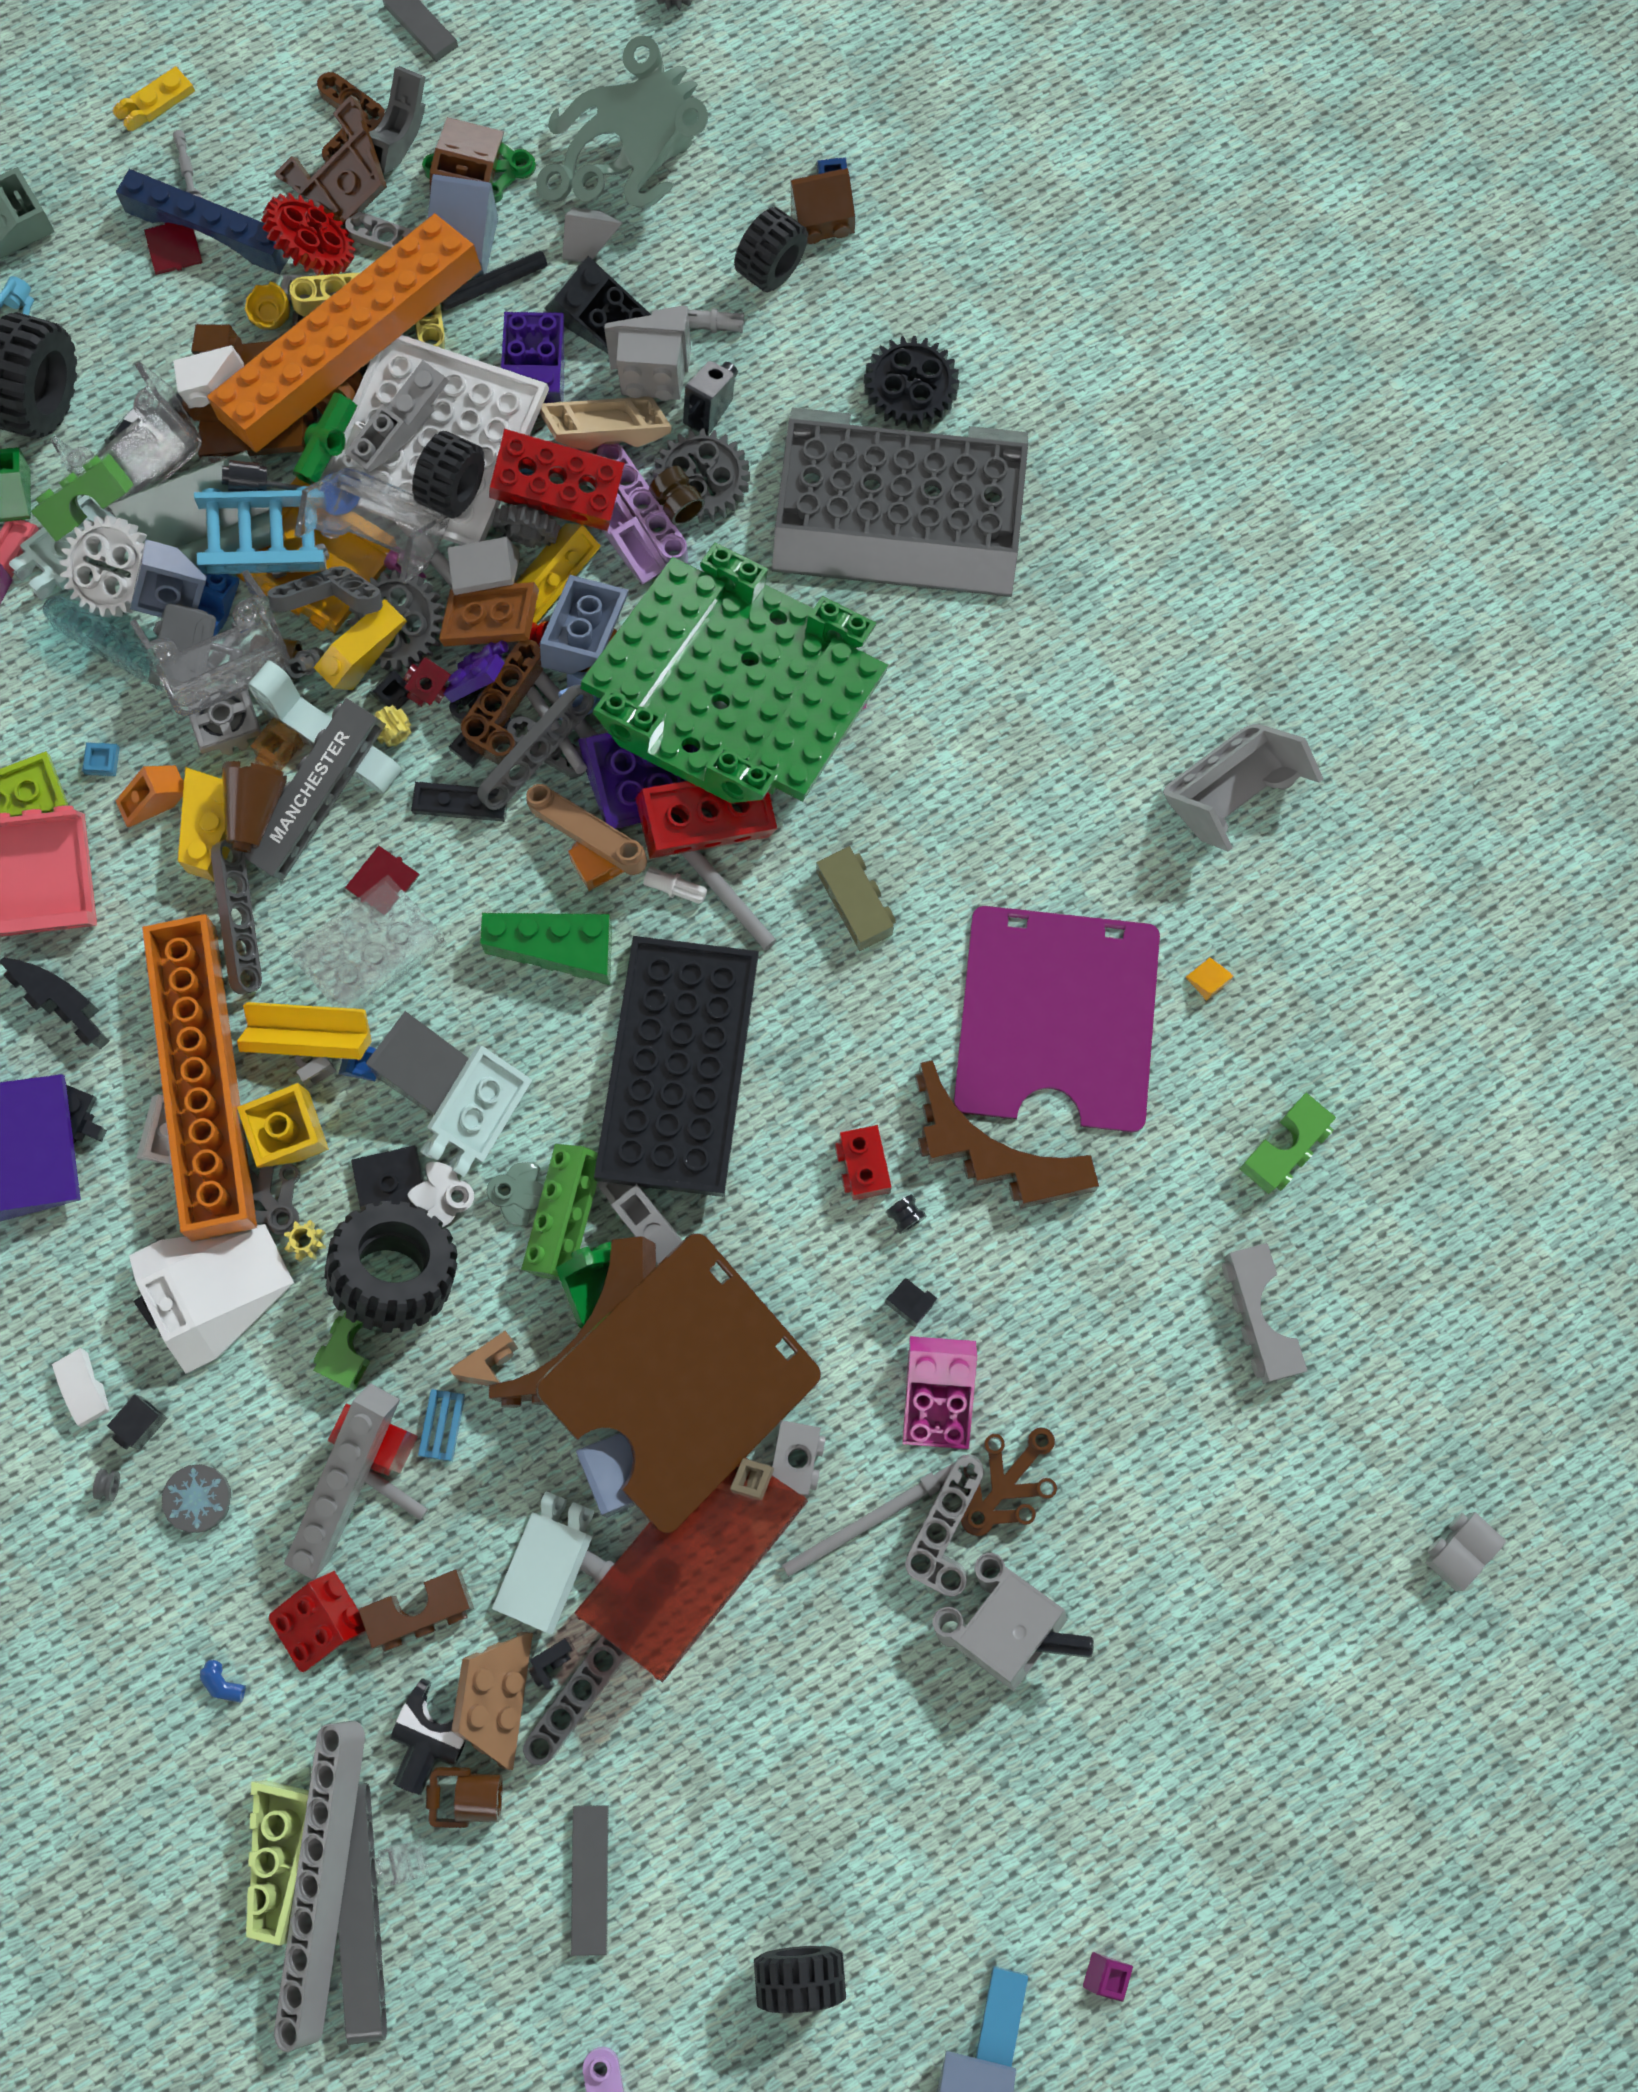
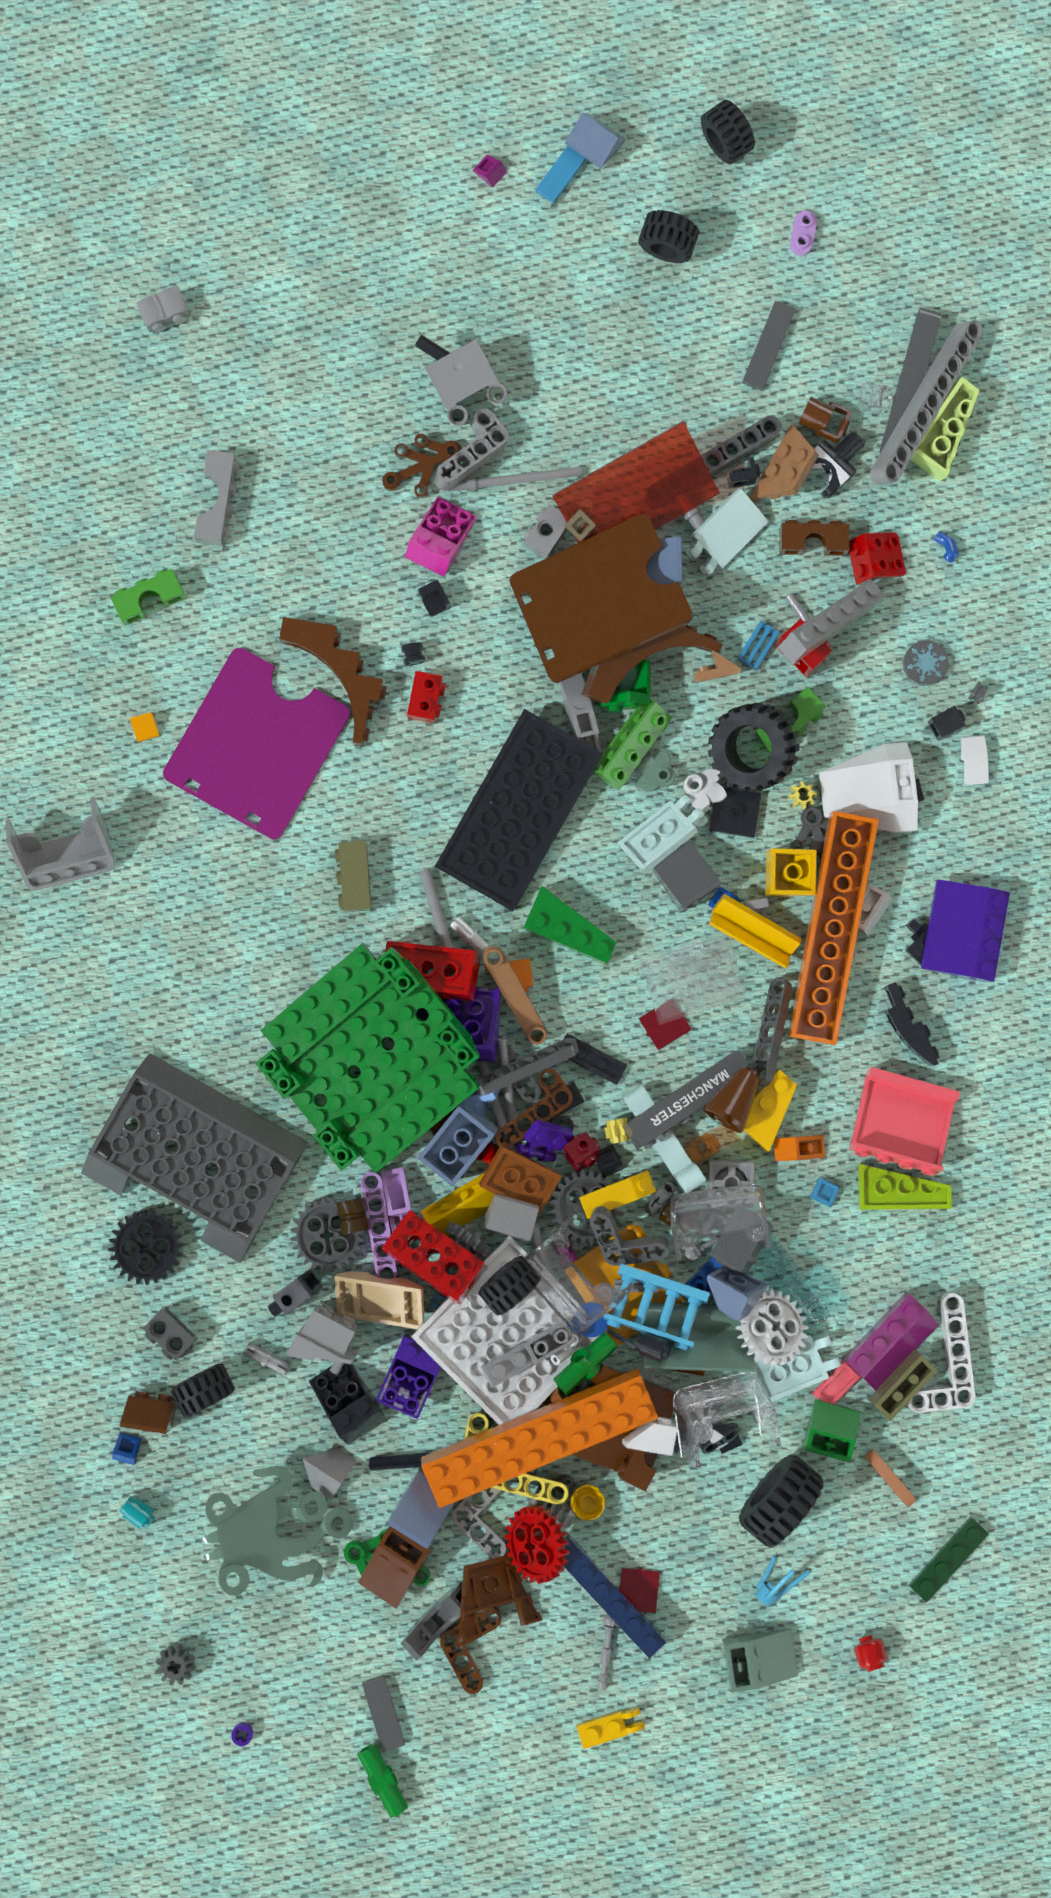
camera: 160 degrees left, 10 degrees up
(60, 509) = (756, 1388): bright green arch -> none
(788, 111) = (137, 1513): none -> teal brick
(837, 308) = (174, 1328): none -> dark grey brick

